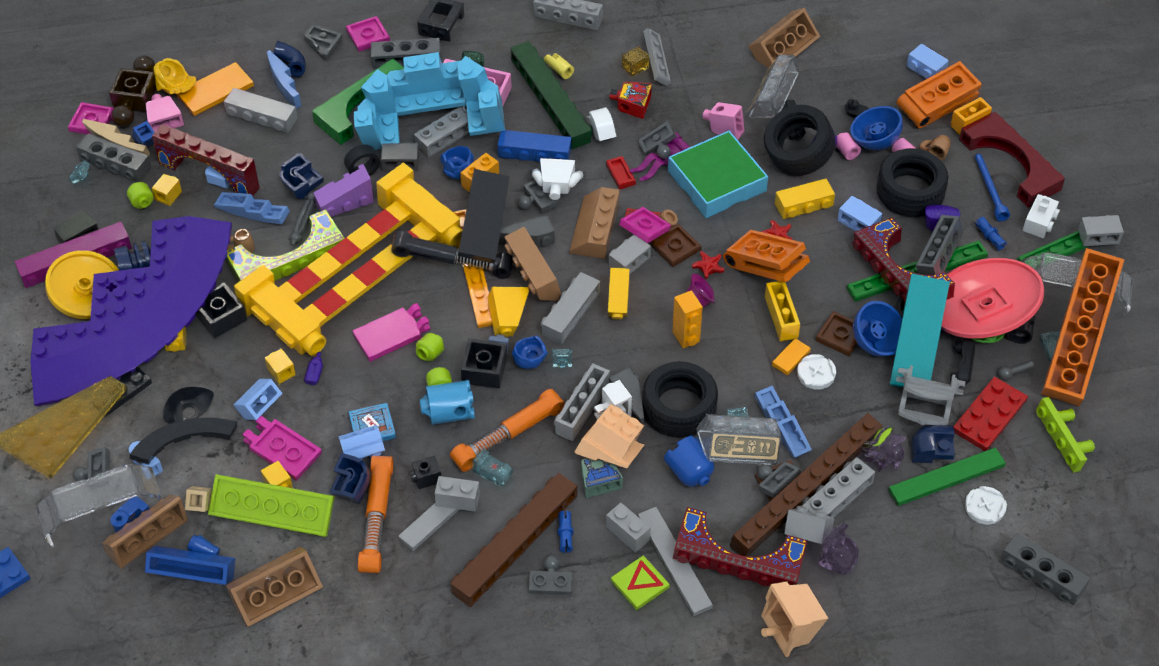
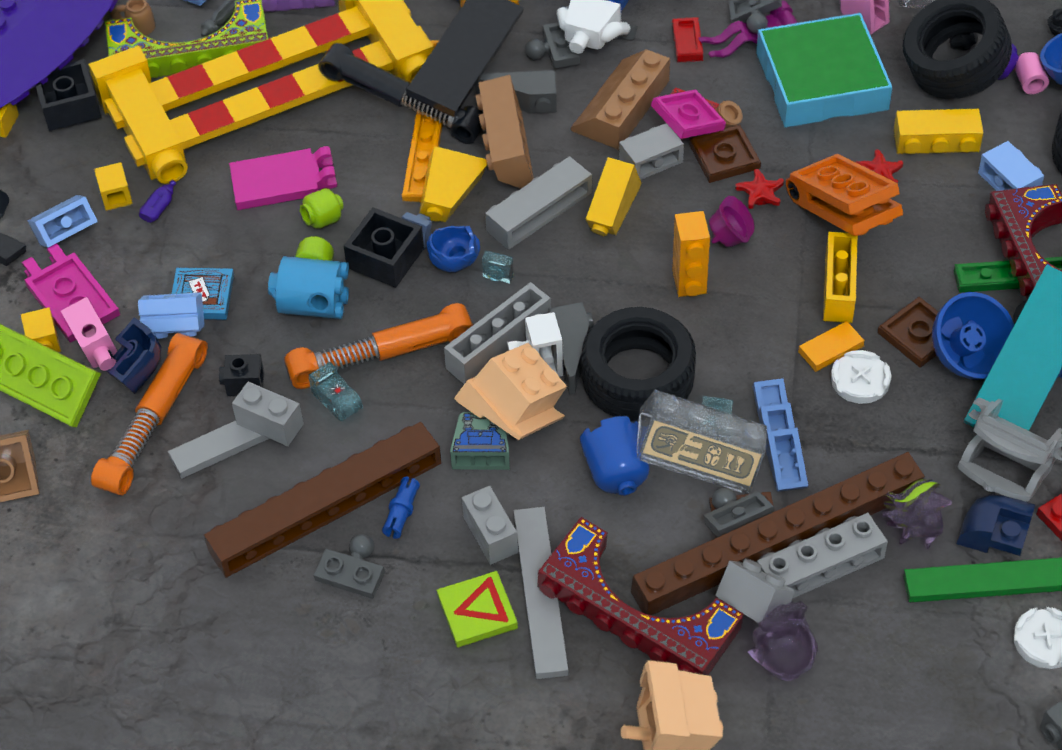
camera: 20 degrees right, 0 degrees up
(315, 472) = (95, 342): none -> bright pink torso

